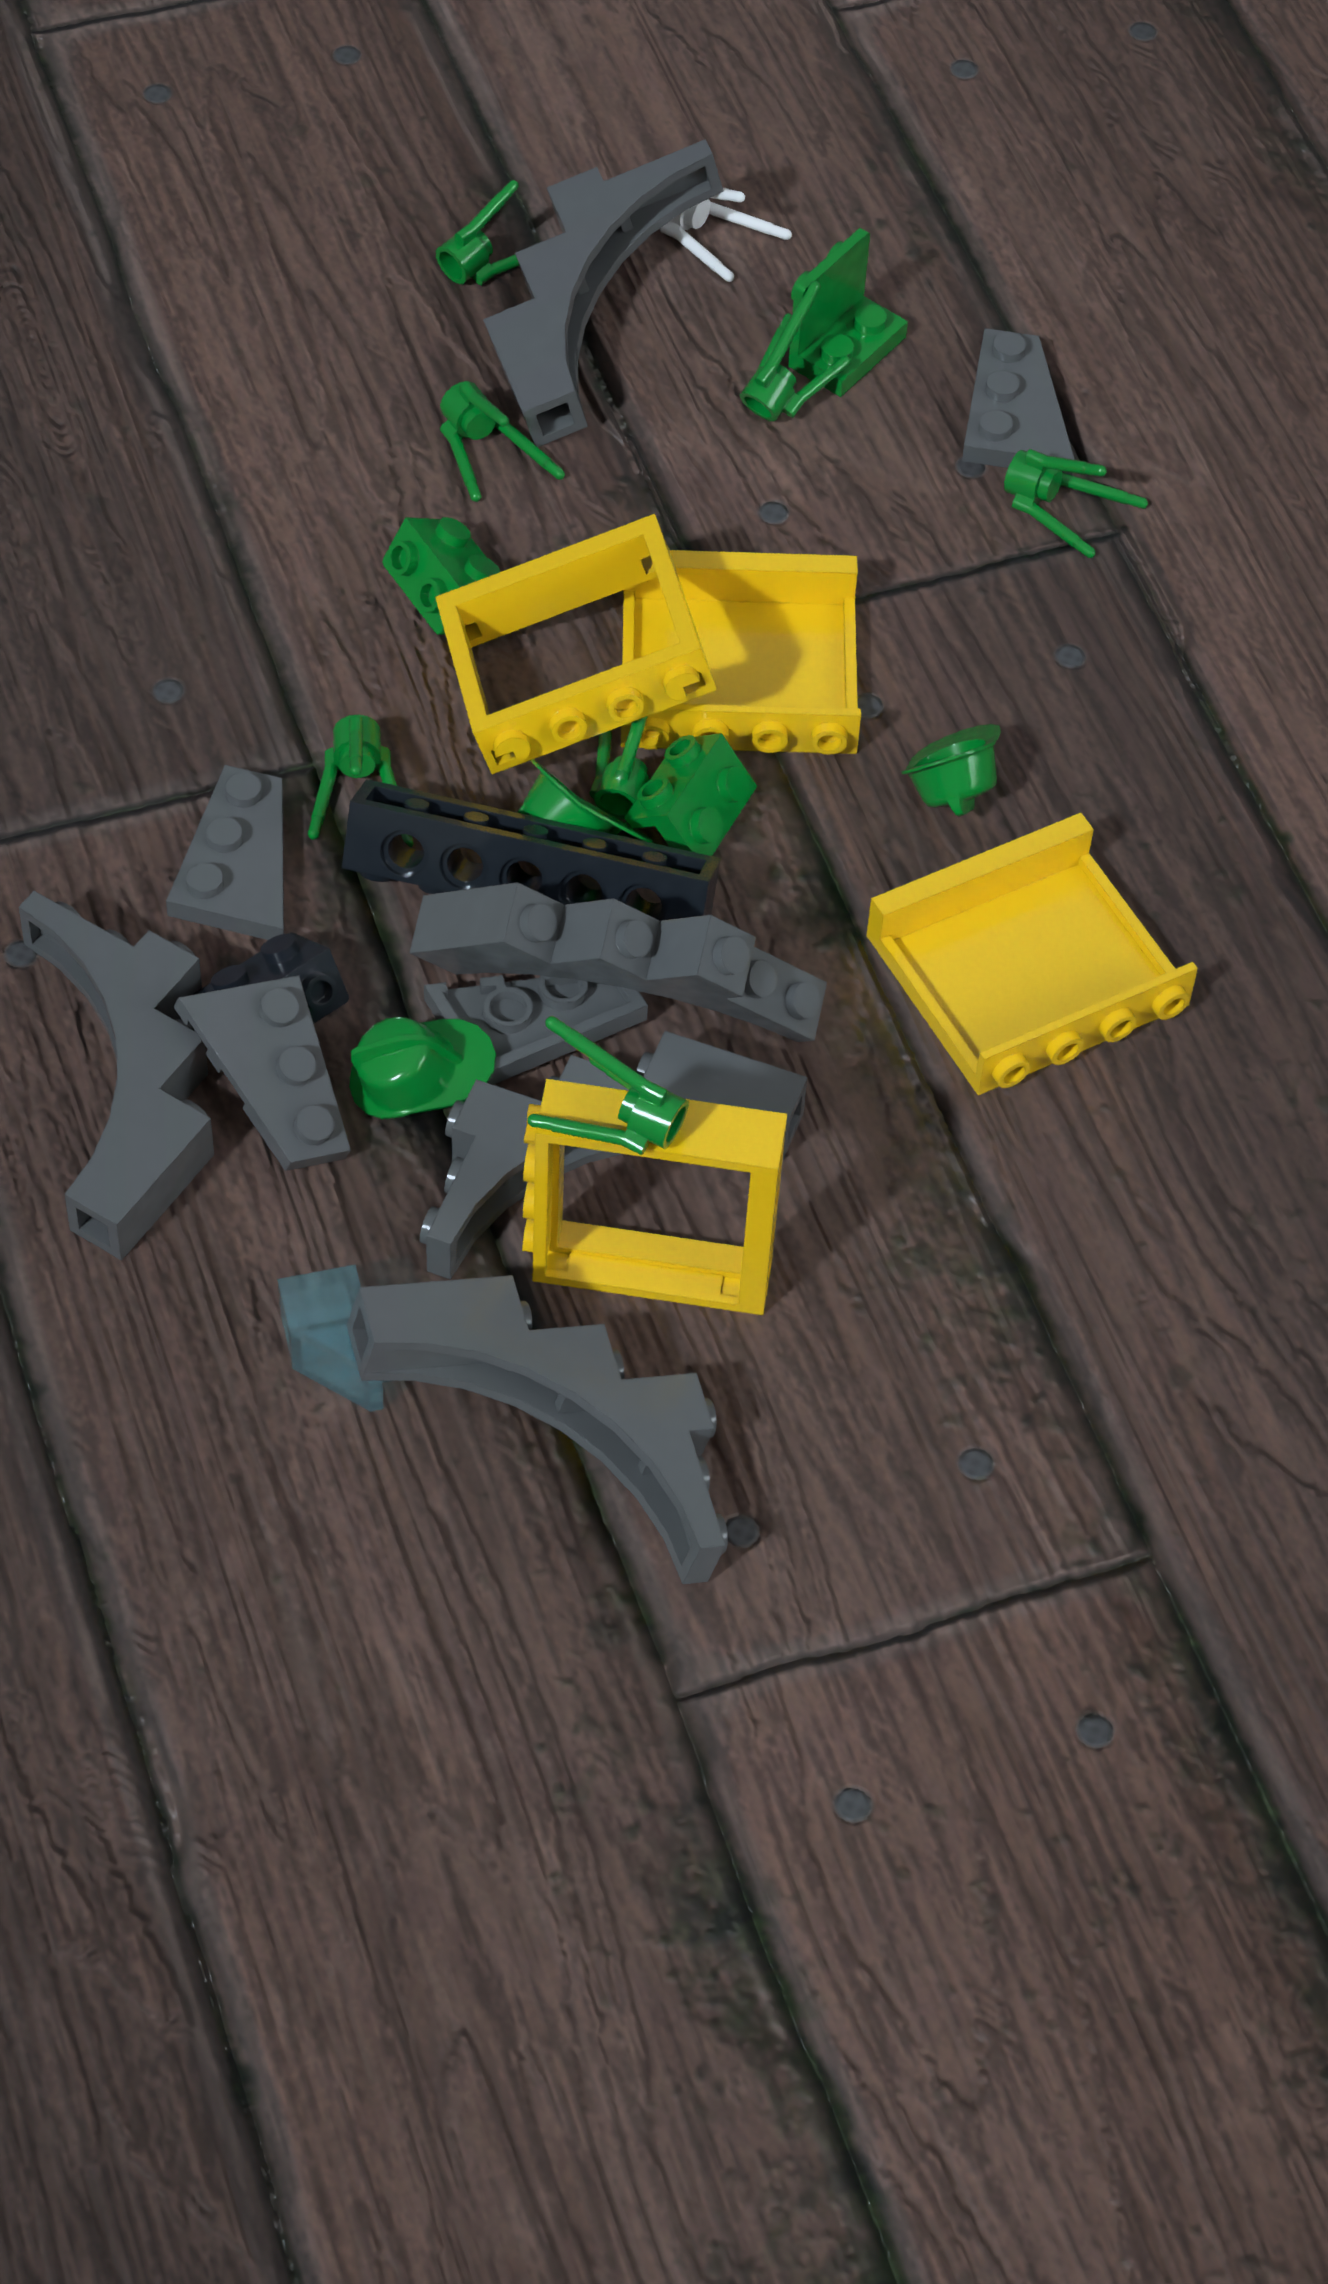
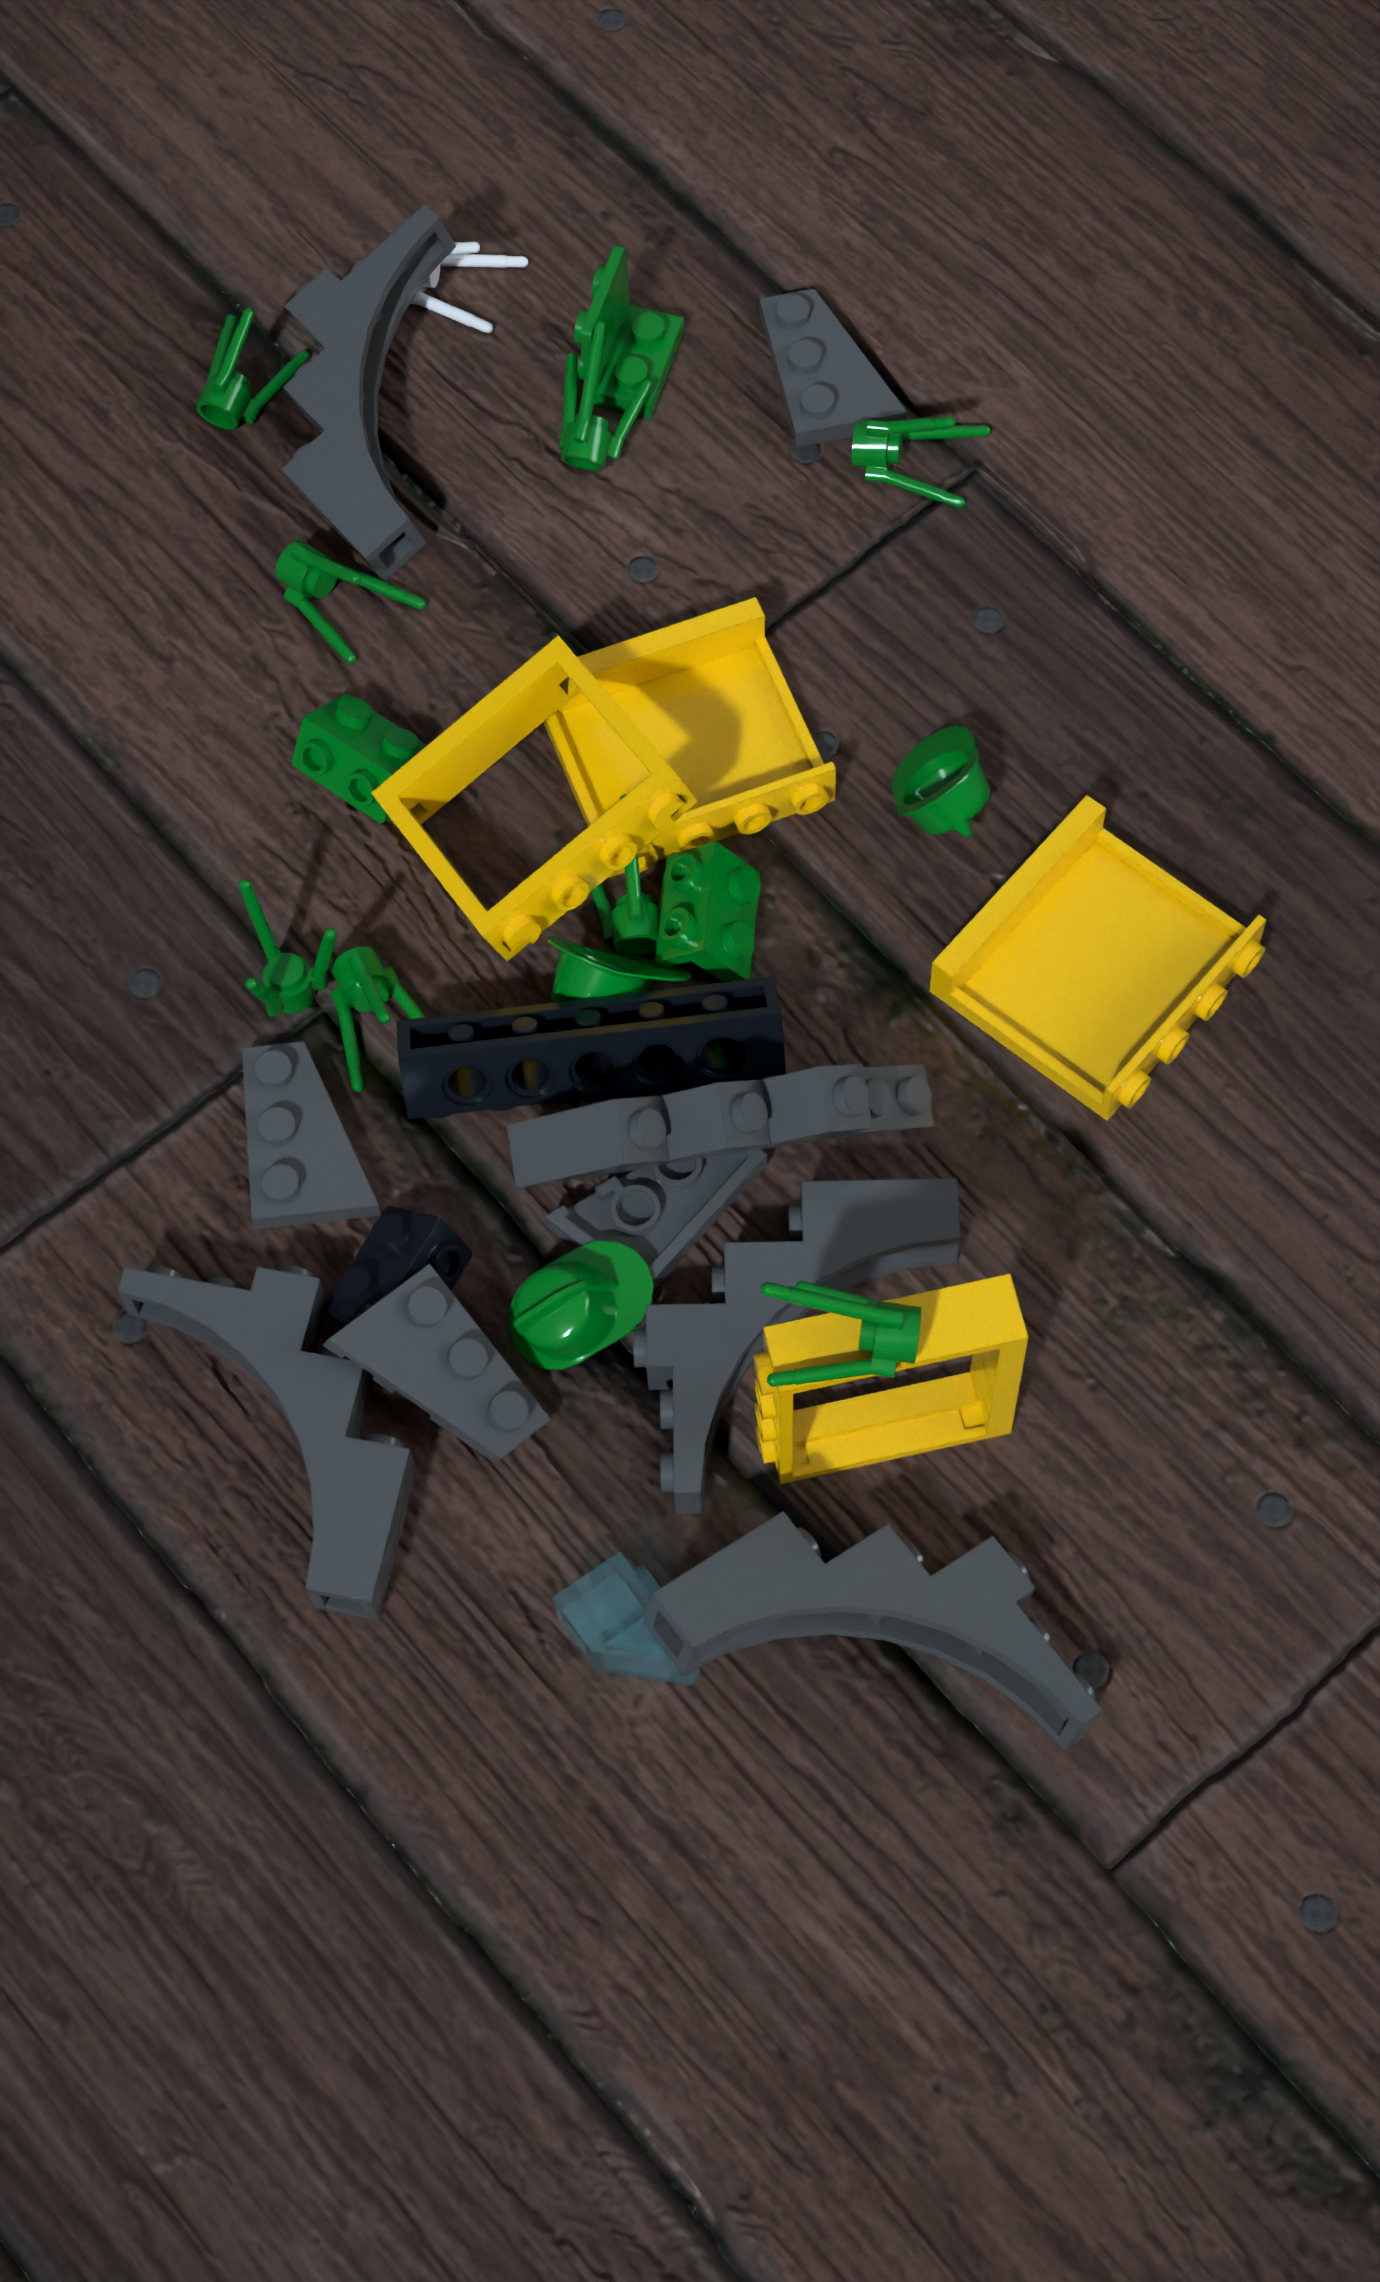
camera: 15 degrees left, 10 degrees up
(292, 725) = (287, 977): none -> green plant

